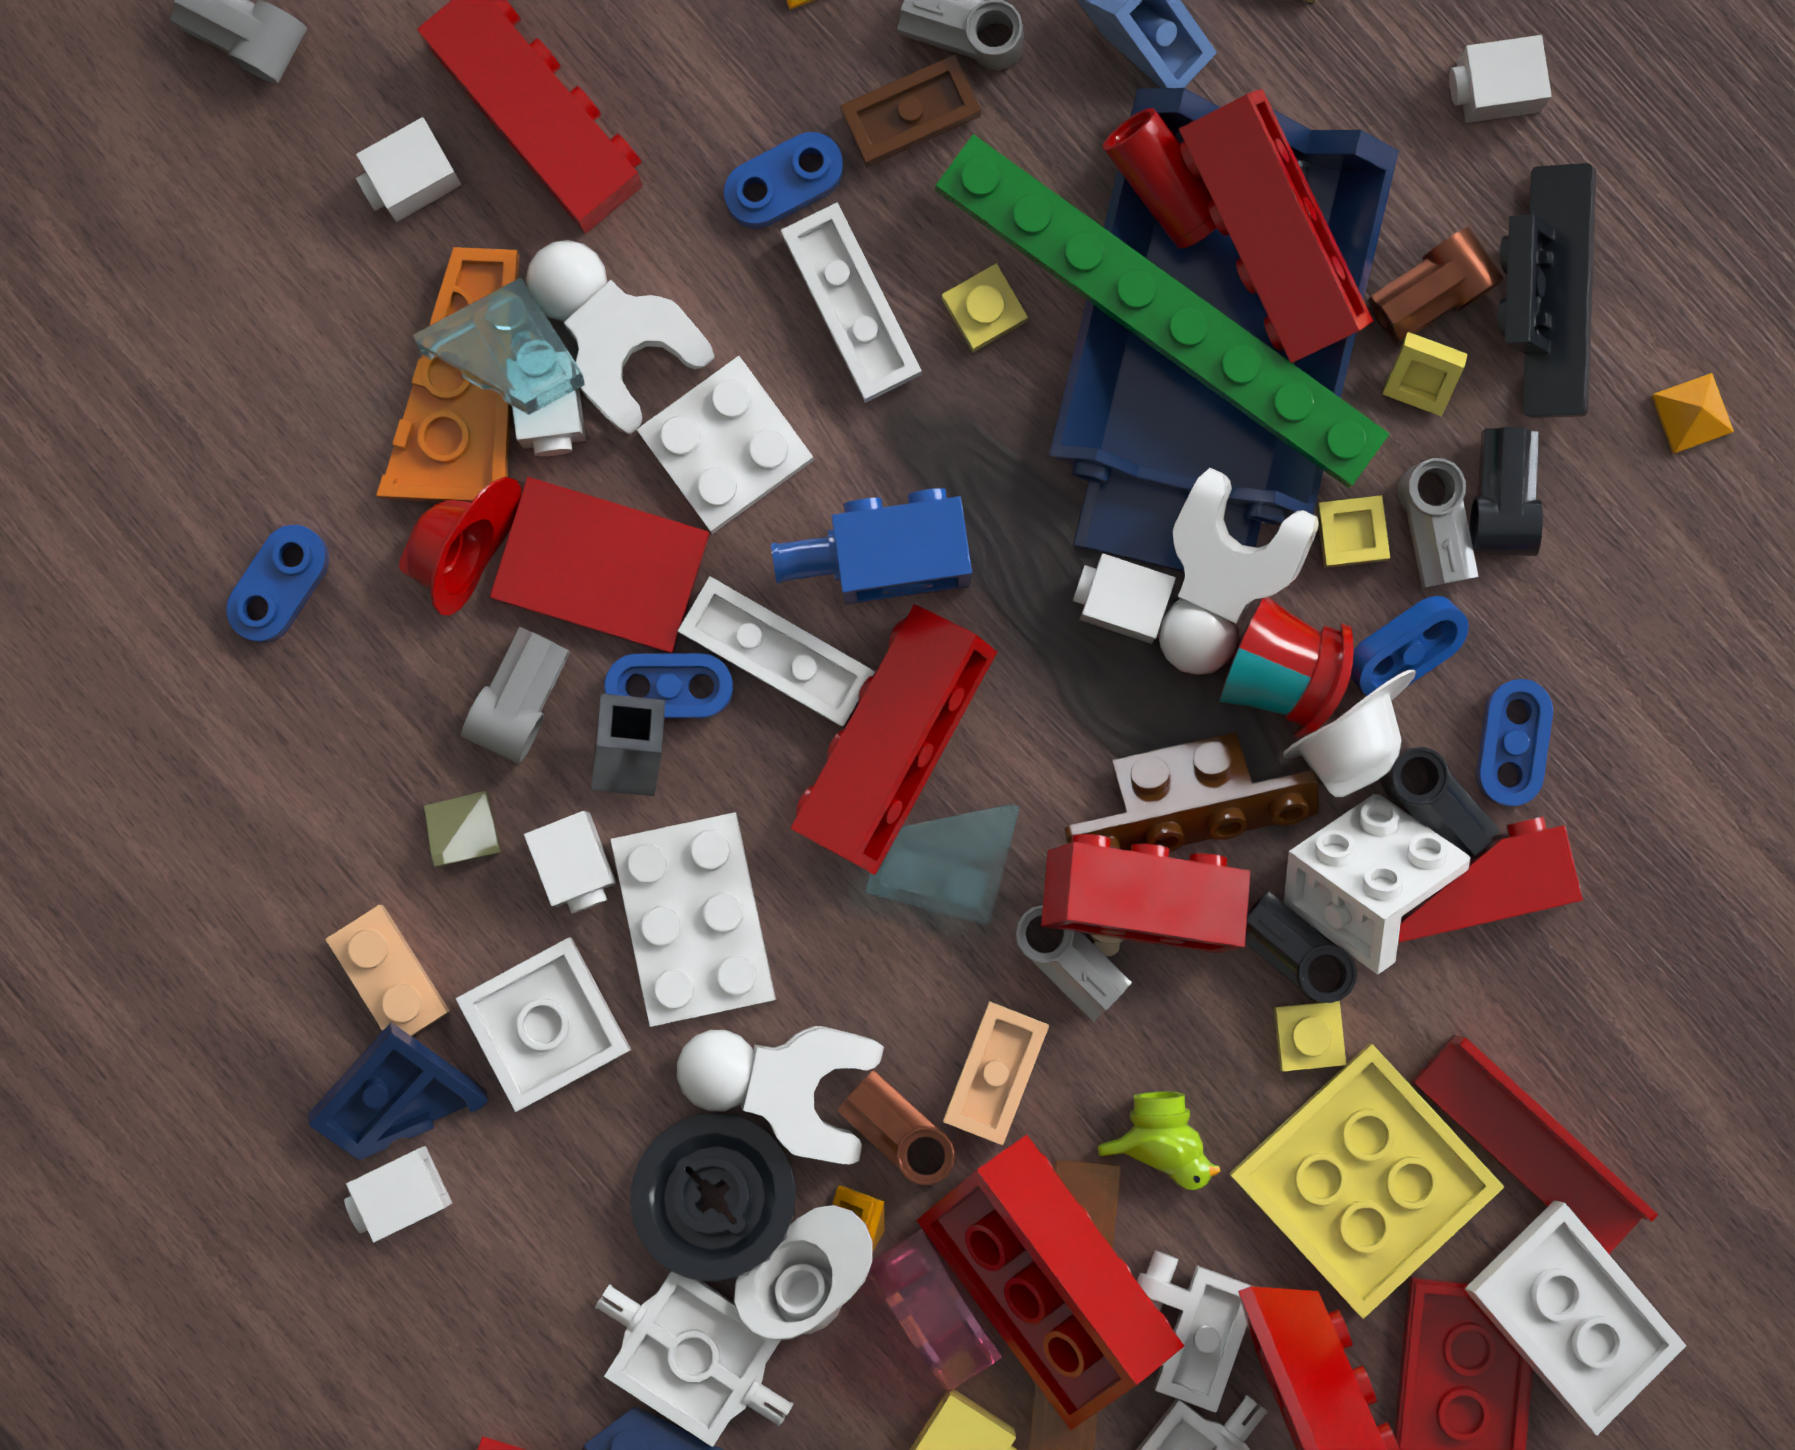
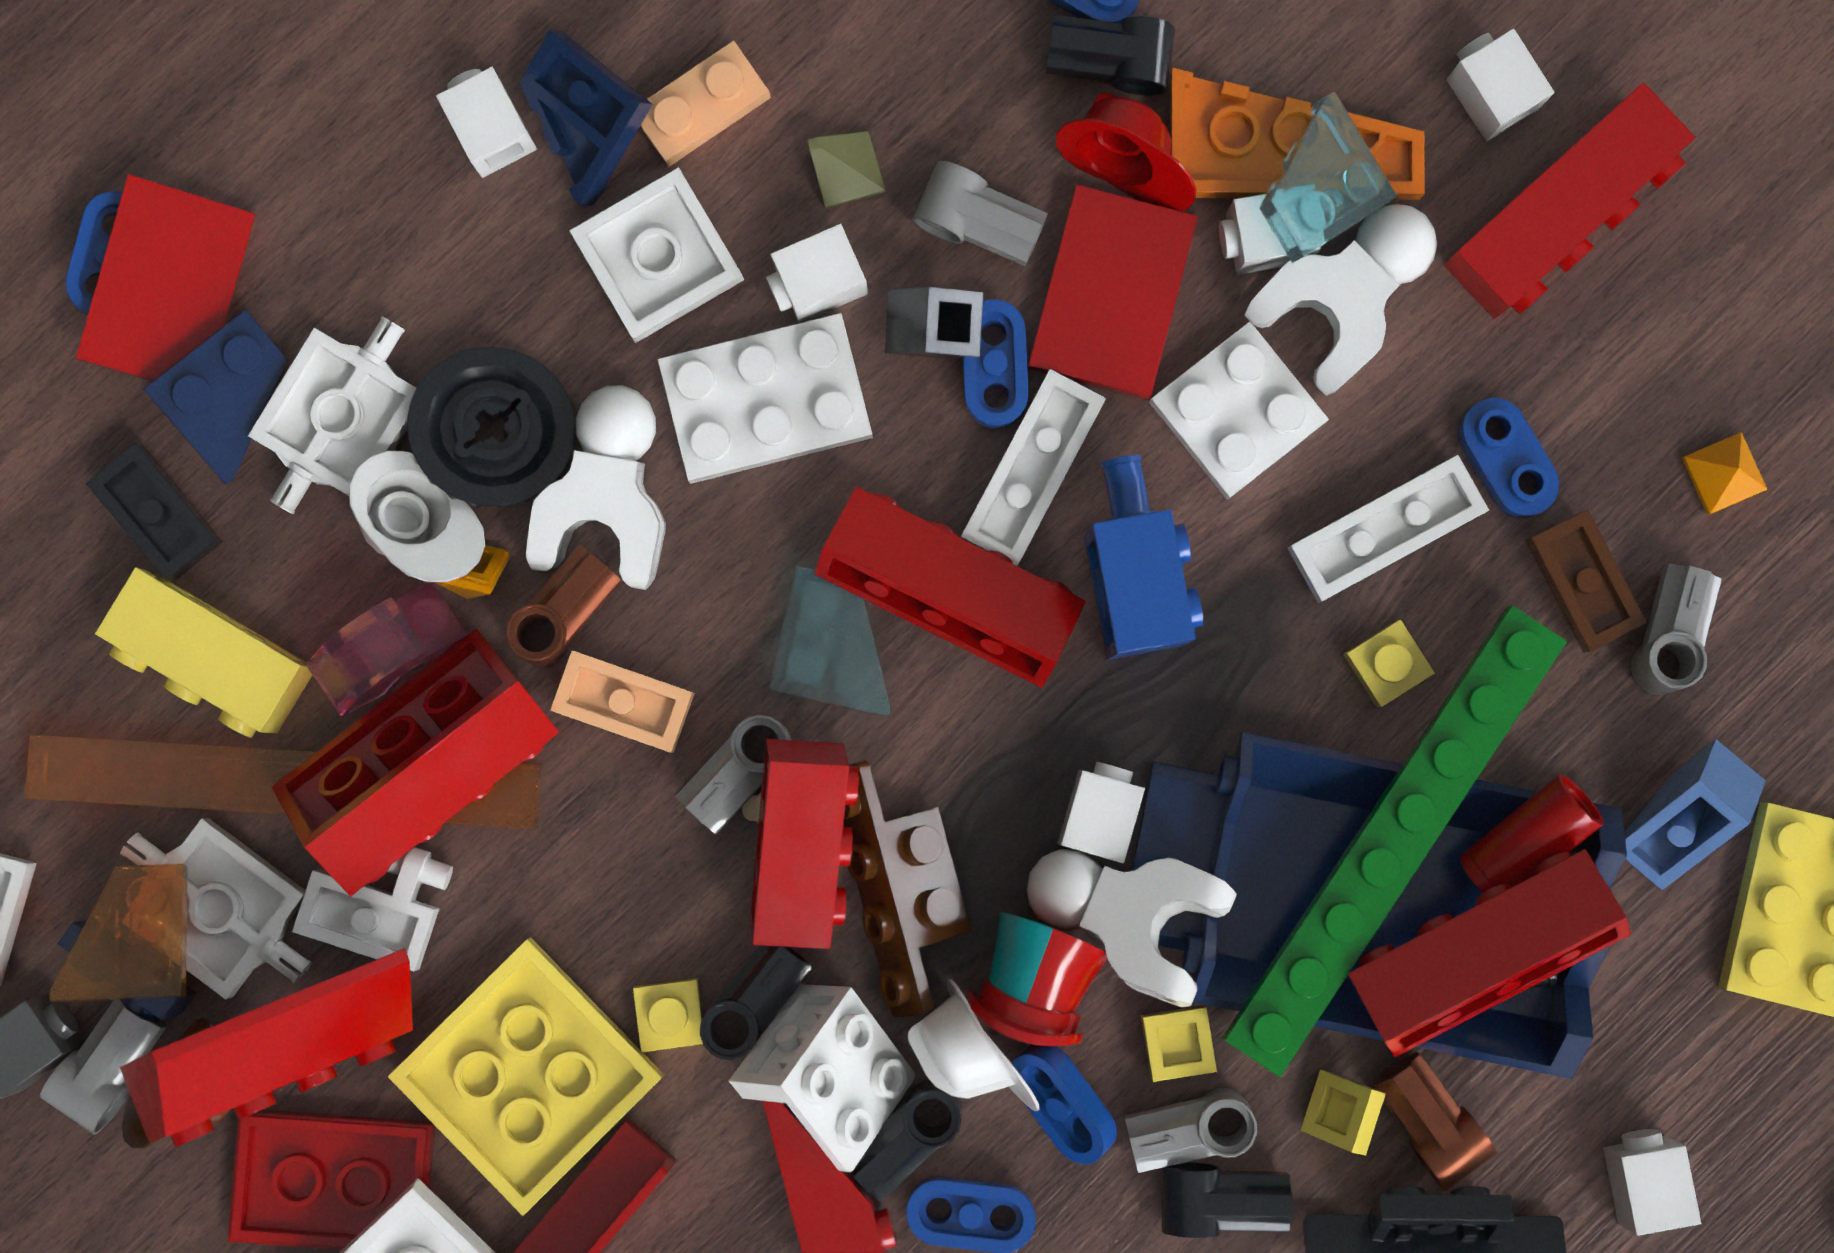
camera: 85 degrees right, 0 degrees up
(358, 539) = (1127, 53): none -> black piece
(1164, 1140) = (561, 871): lime animal -> none

